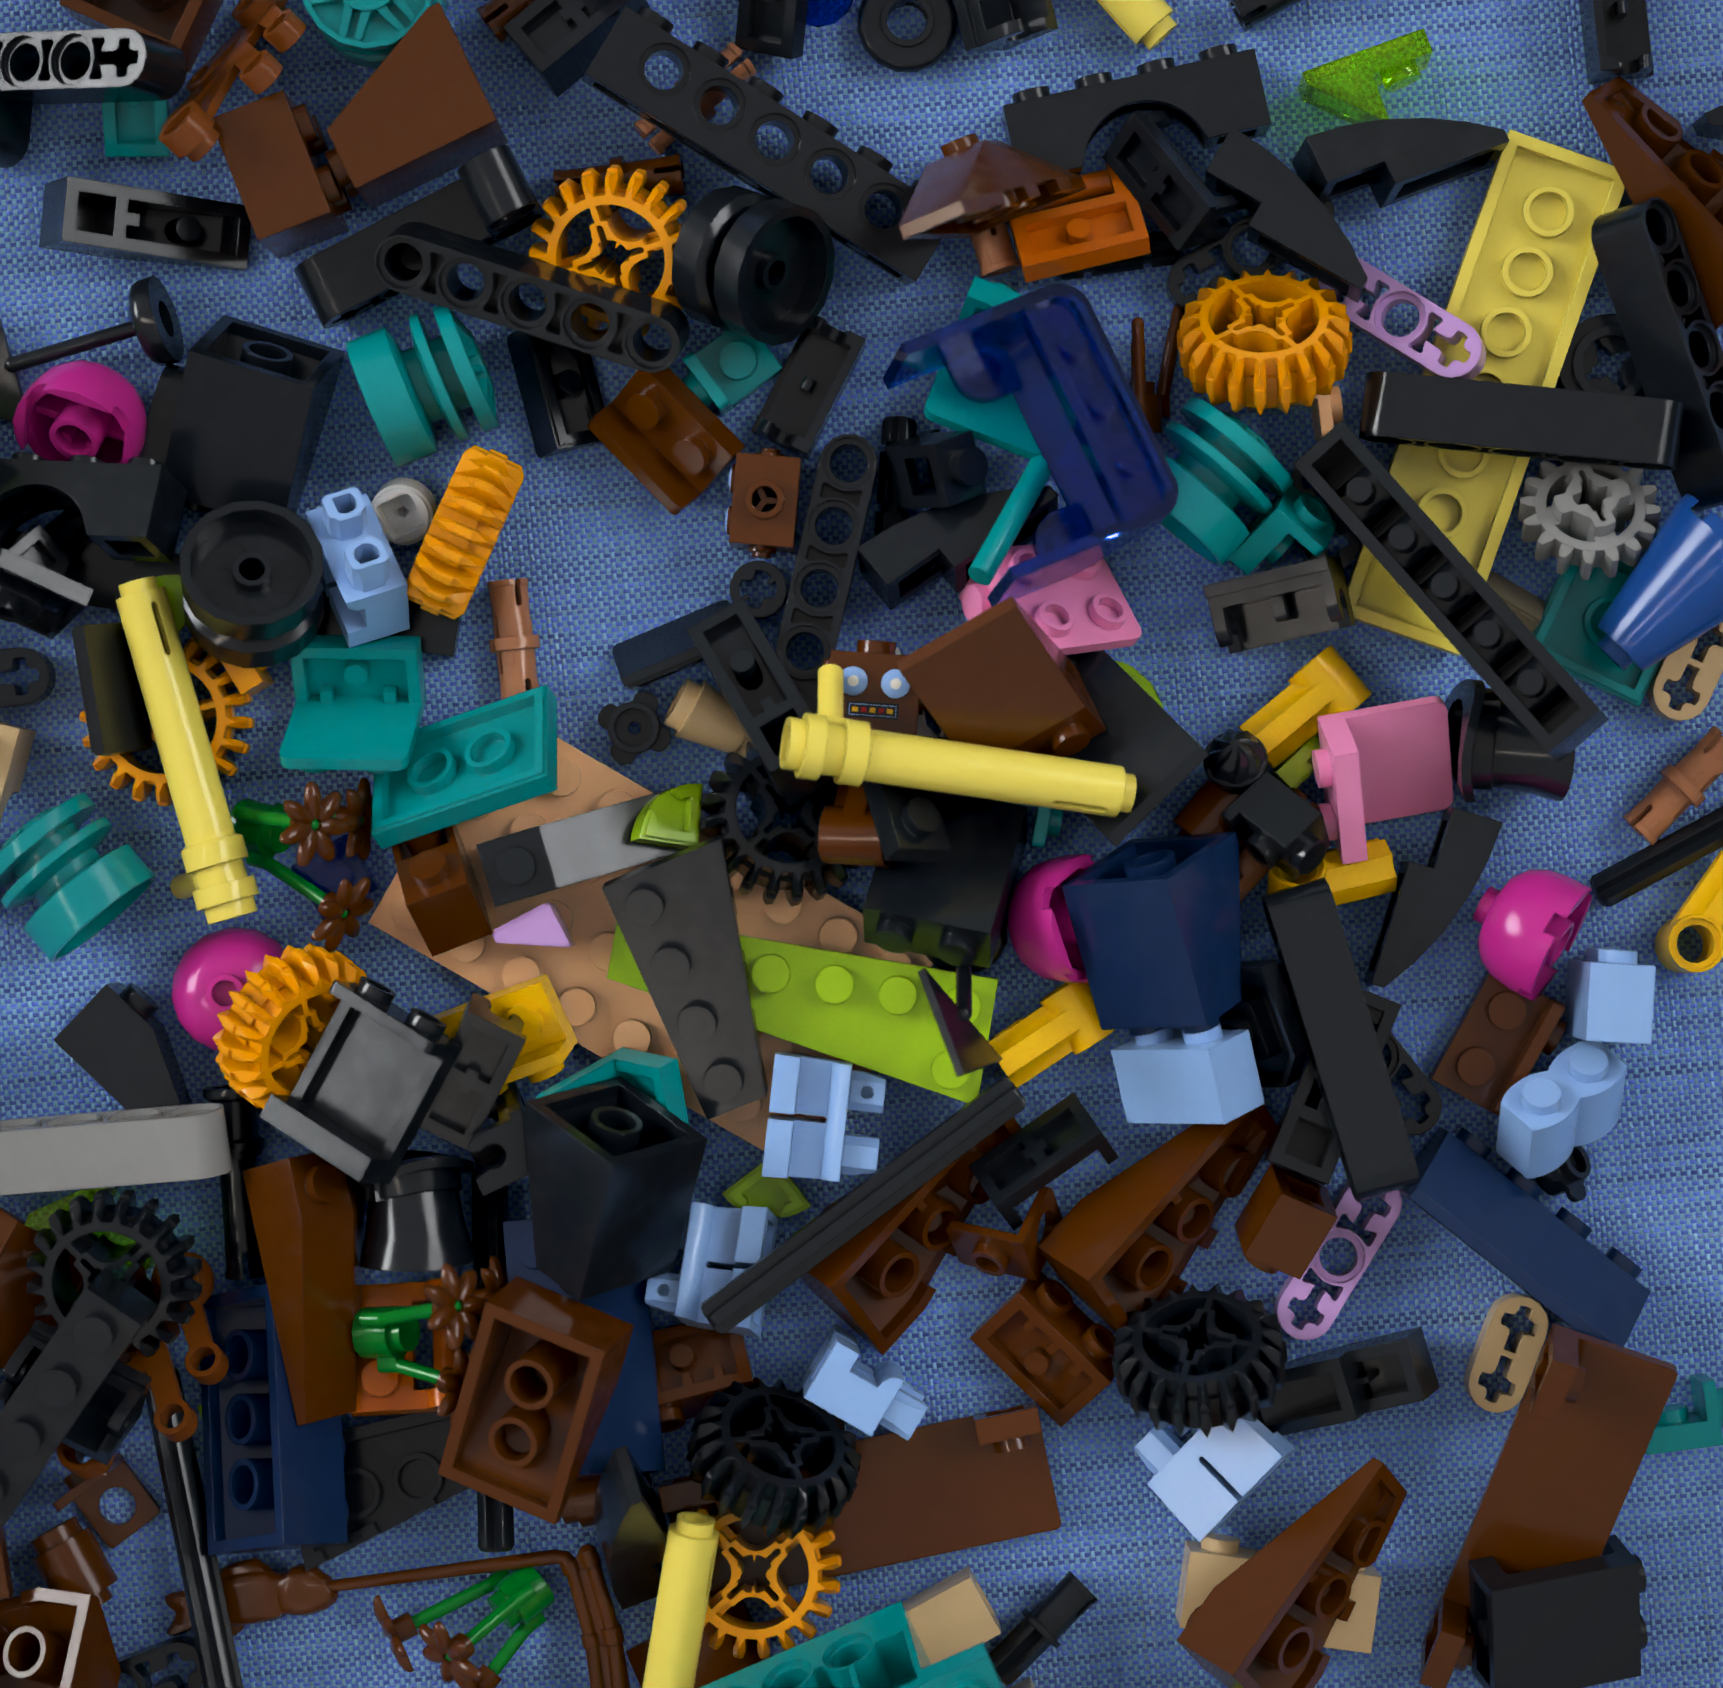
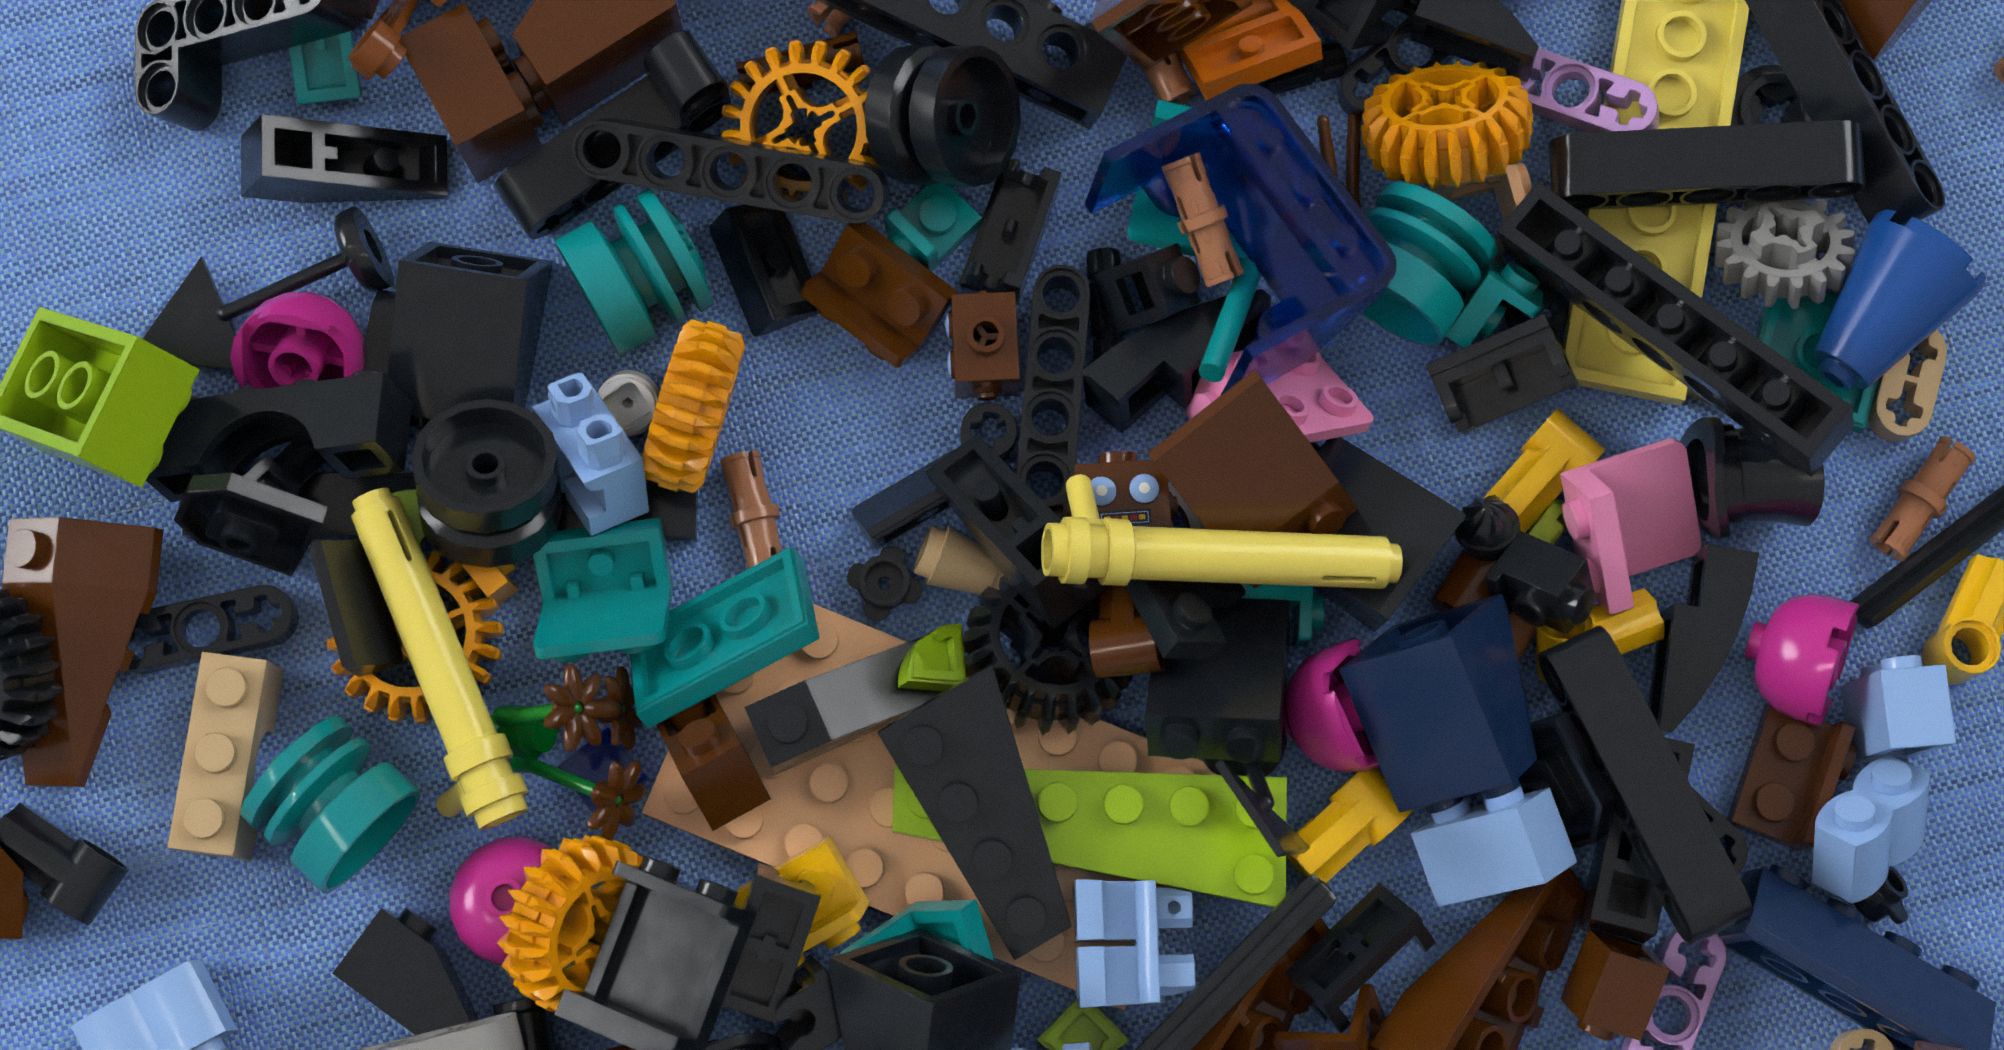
camera: 15 degrees left, 10 degrees down
(537, 927) = (813, 789): lavender slope -> none
(997, 413) = (1202, 219): none -> nougat pin

